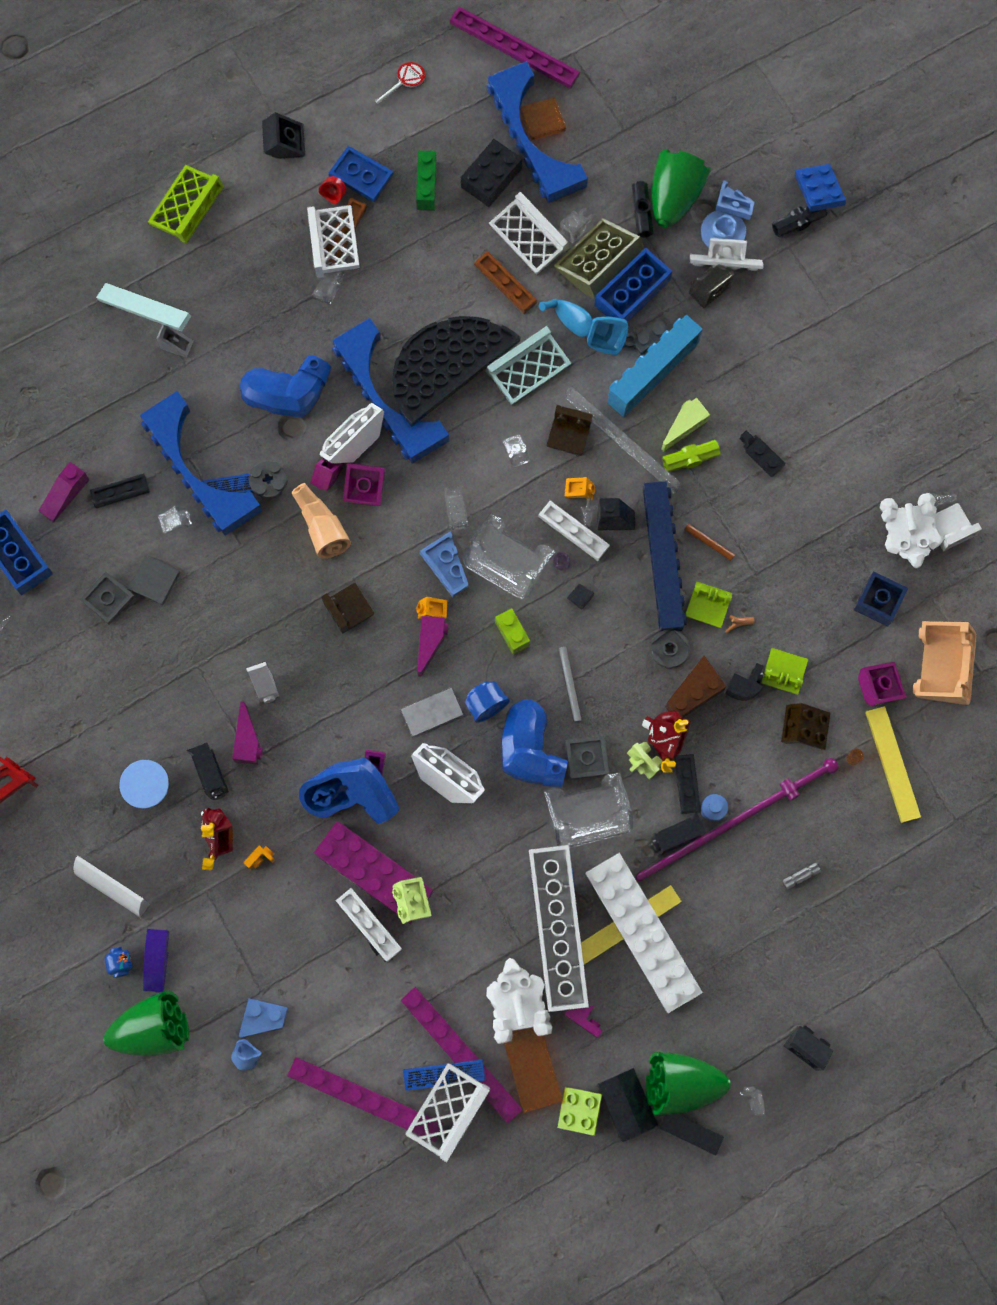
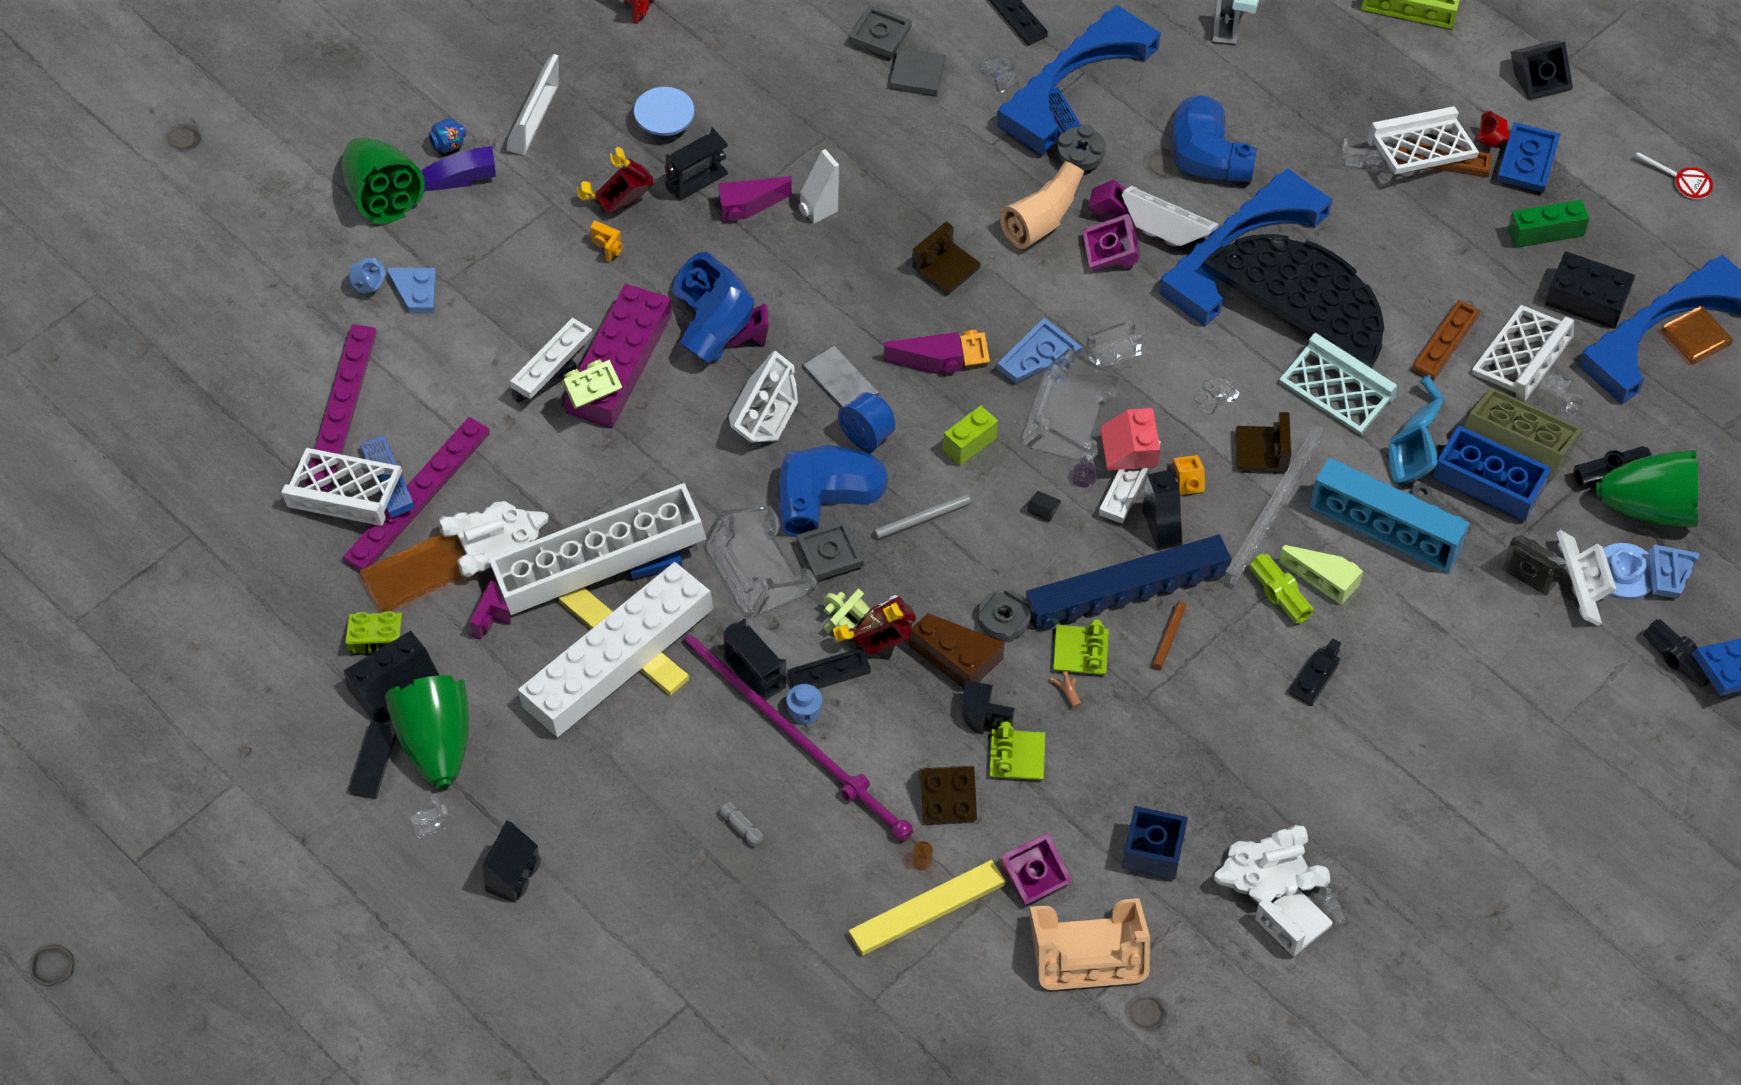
camera: 75 degrees right, 20 degrees down
(550, 520) = (1131, 440): none -> coral slope

